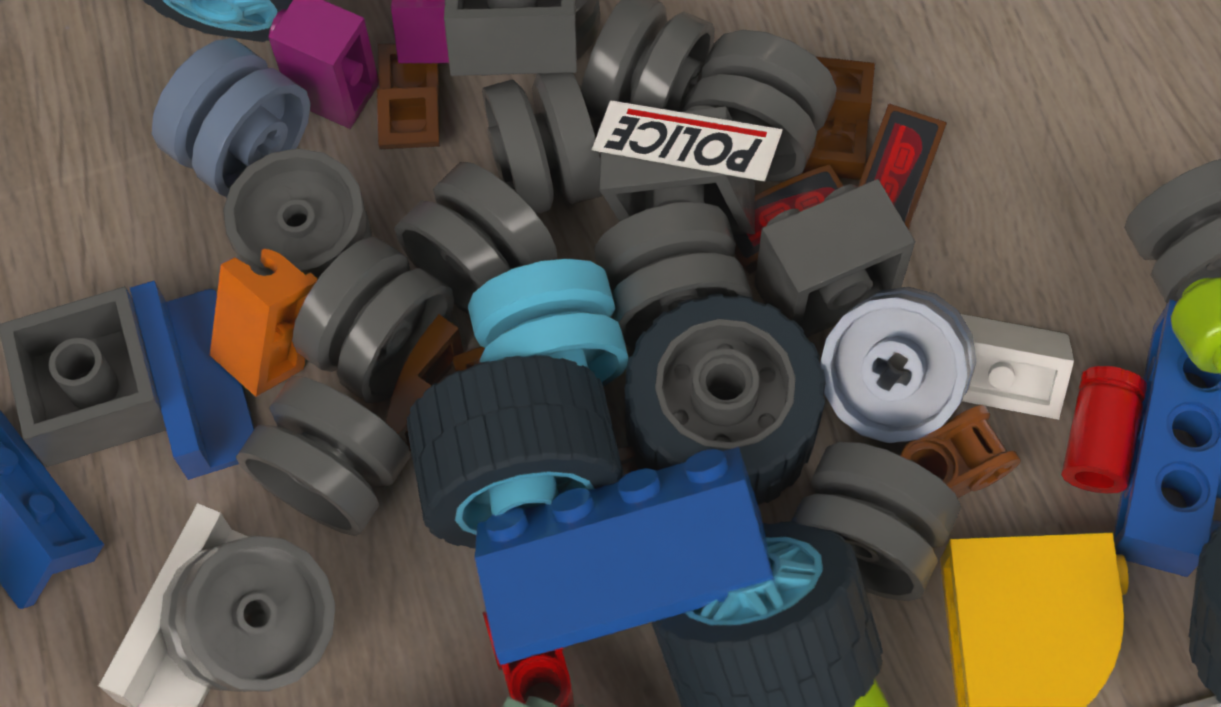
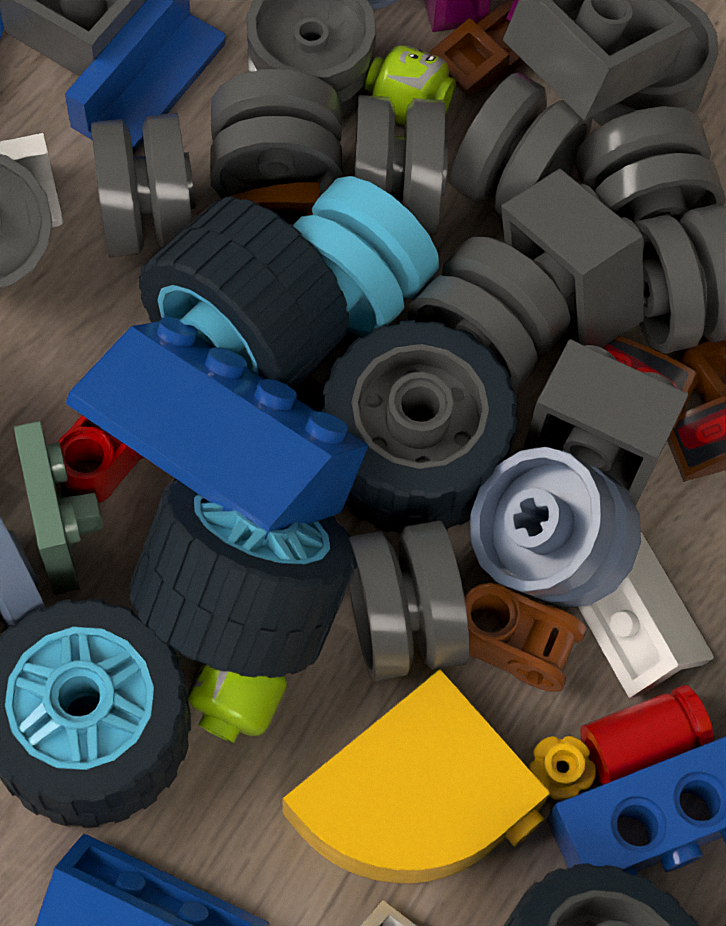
camera: 45 degrees right, 0 degrees up
(258, 320) = (206, 64): orange hinge -> none
(399, 178) = (409, 75): none -> lime head
(687, 140) = (591, 231): white sticker -> none
(1074, 494) = (568, 750): none -> yellow plate

